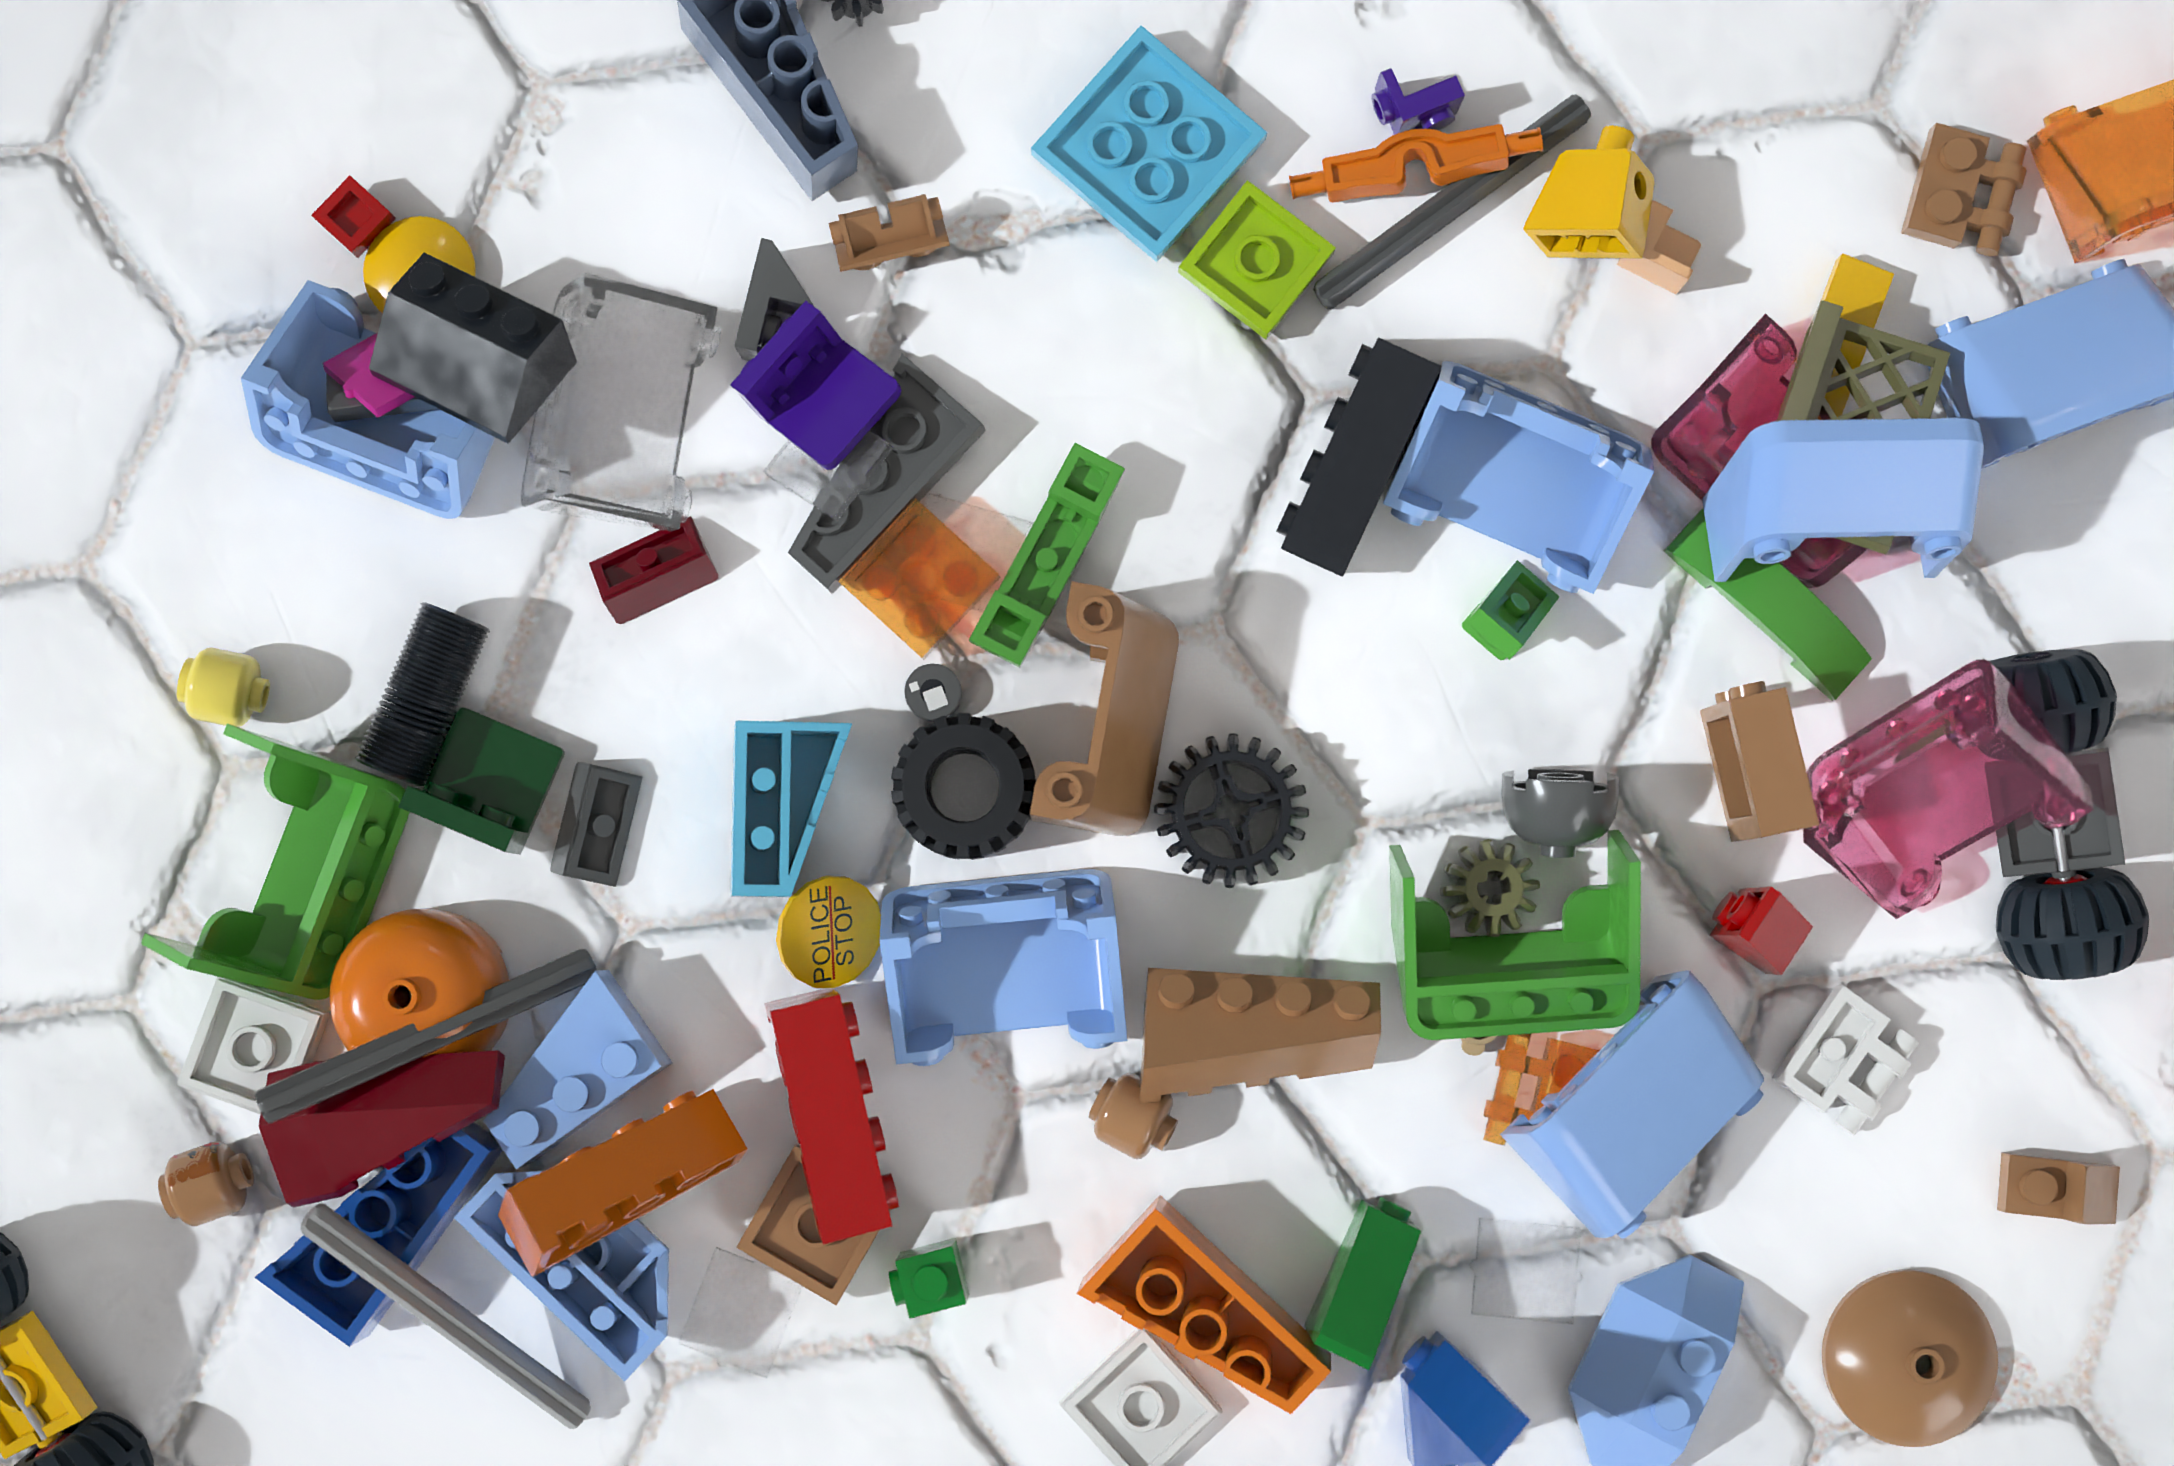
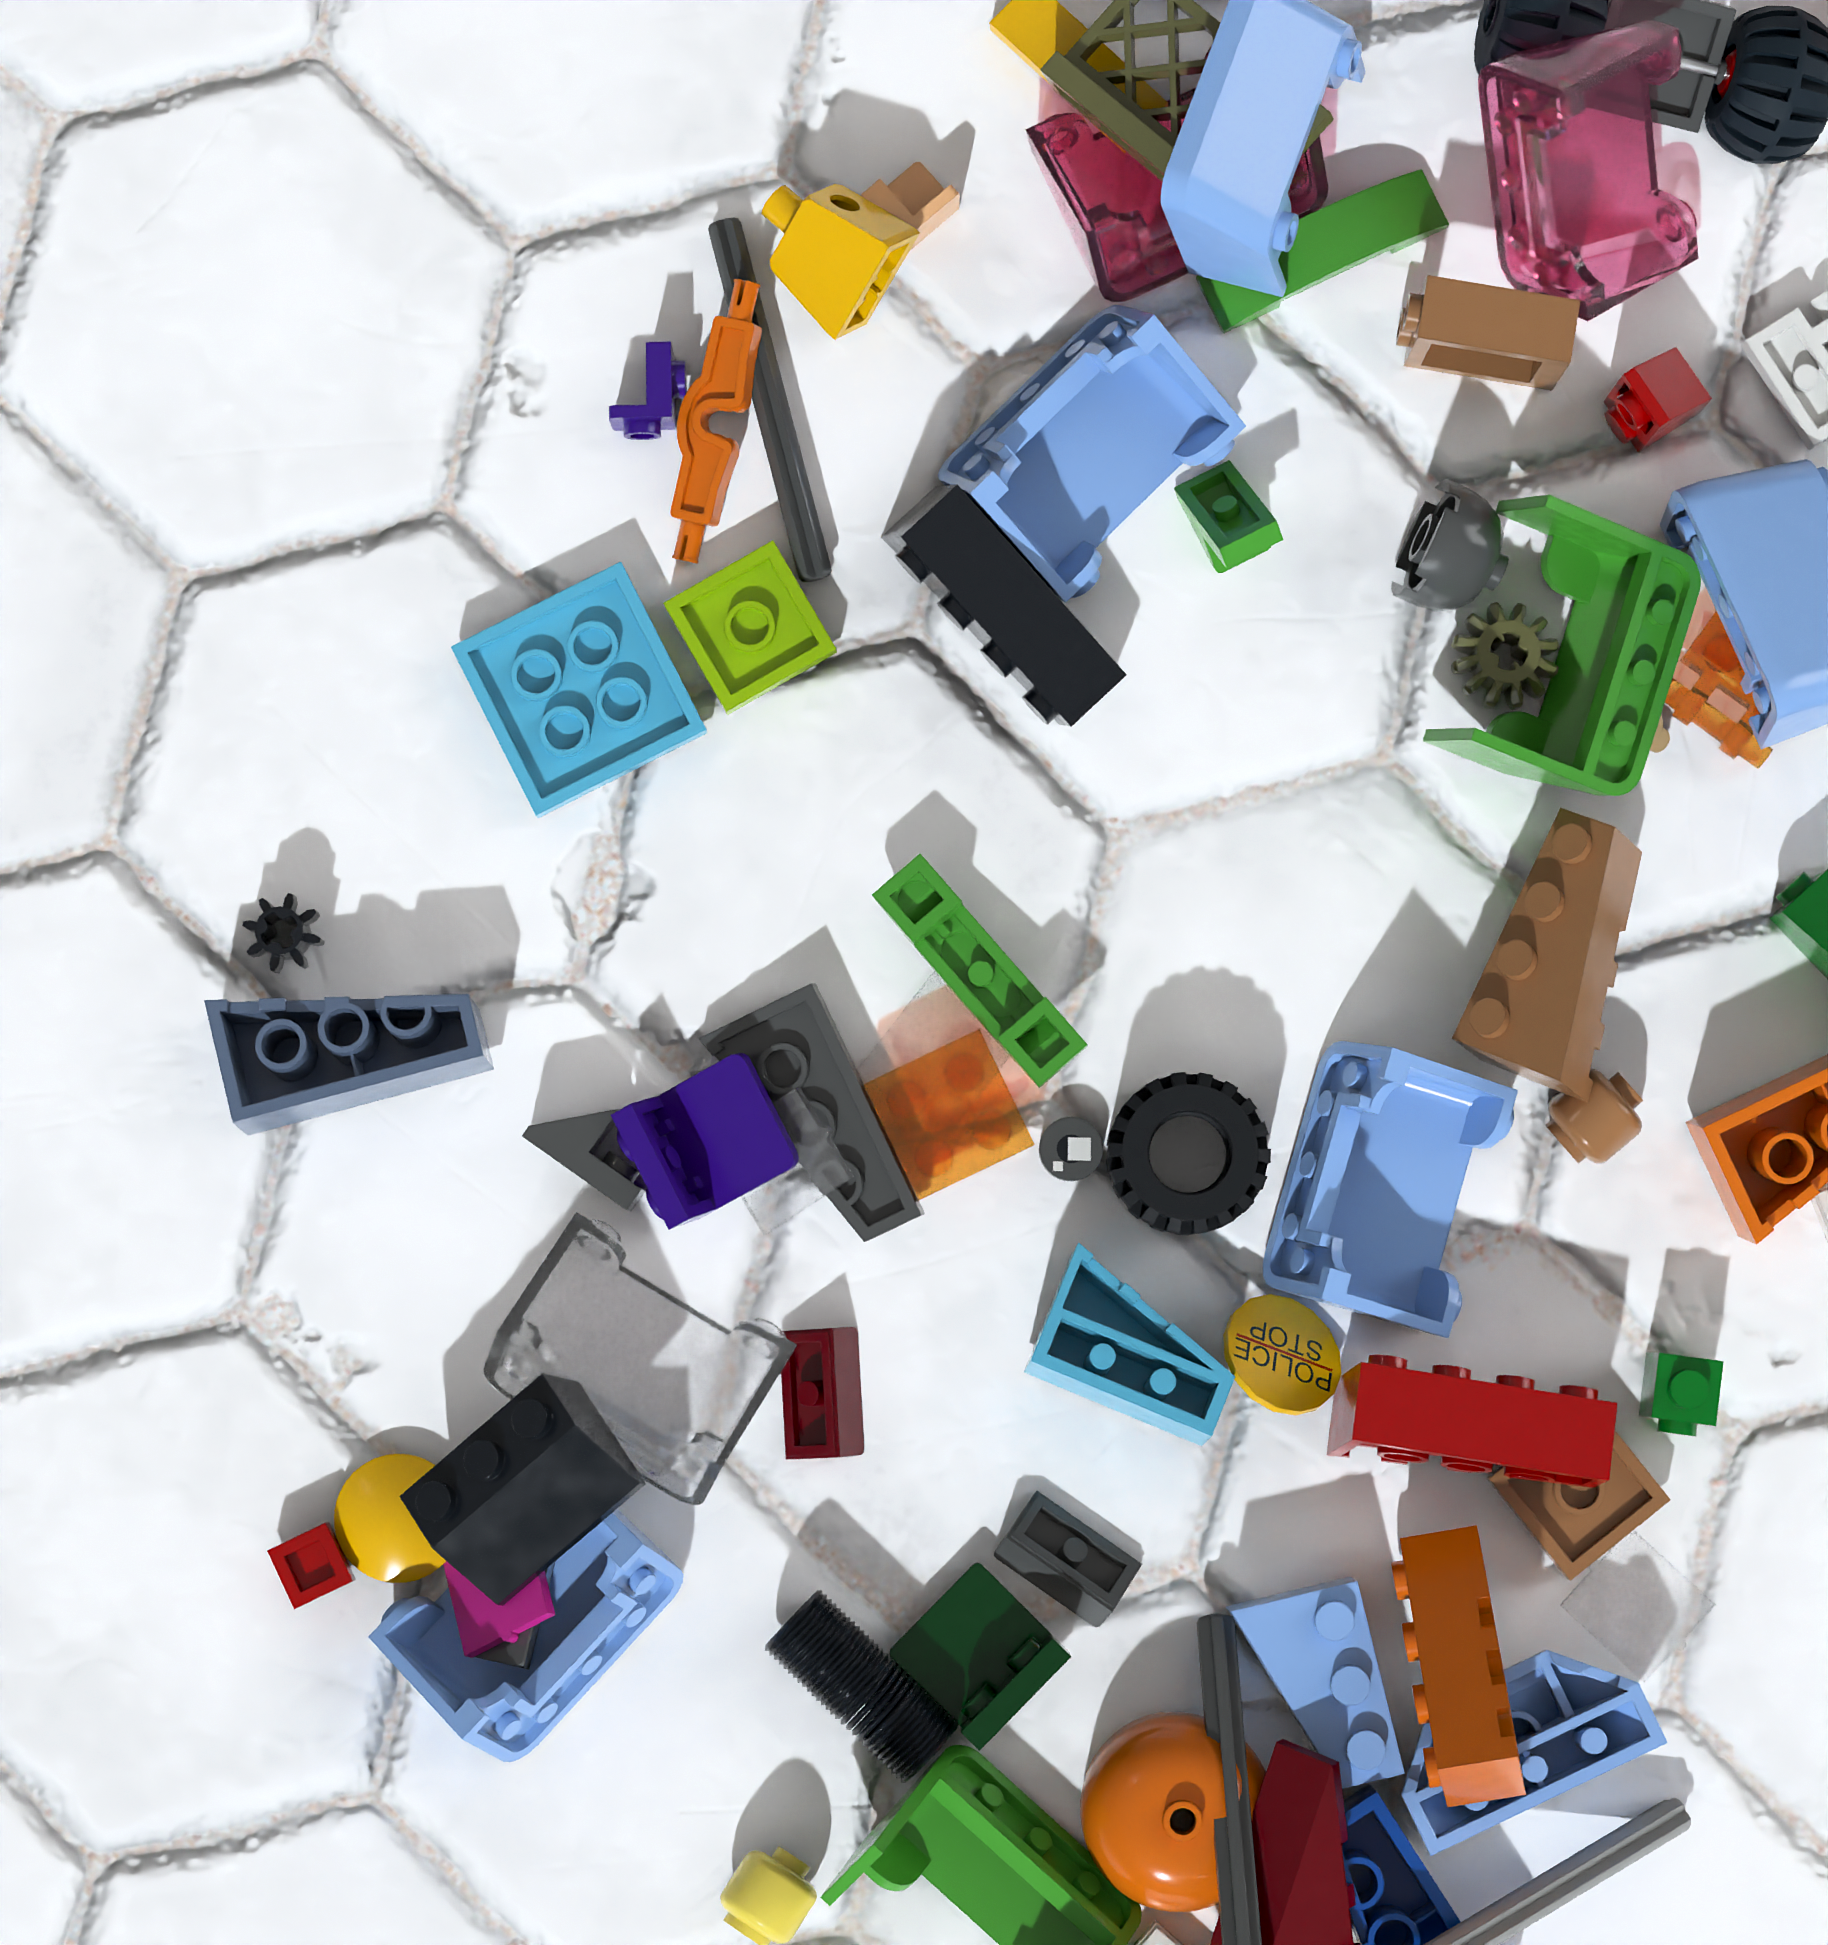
camera: 65 degrees left, 0 degrees up
(866, 243) = (565, 1028): medium nougat hinge -> none
(1139, 657) = (1254, 995): medium nougat windscreen -> none
(1277, 797) = (1351, 890): black gear -> none

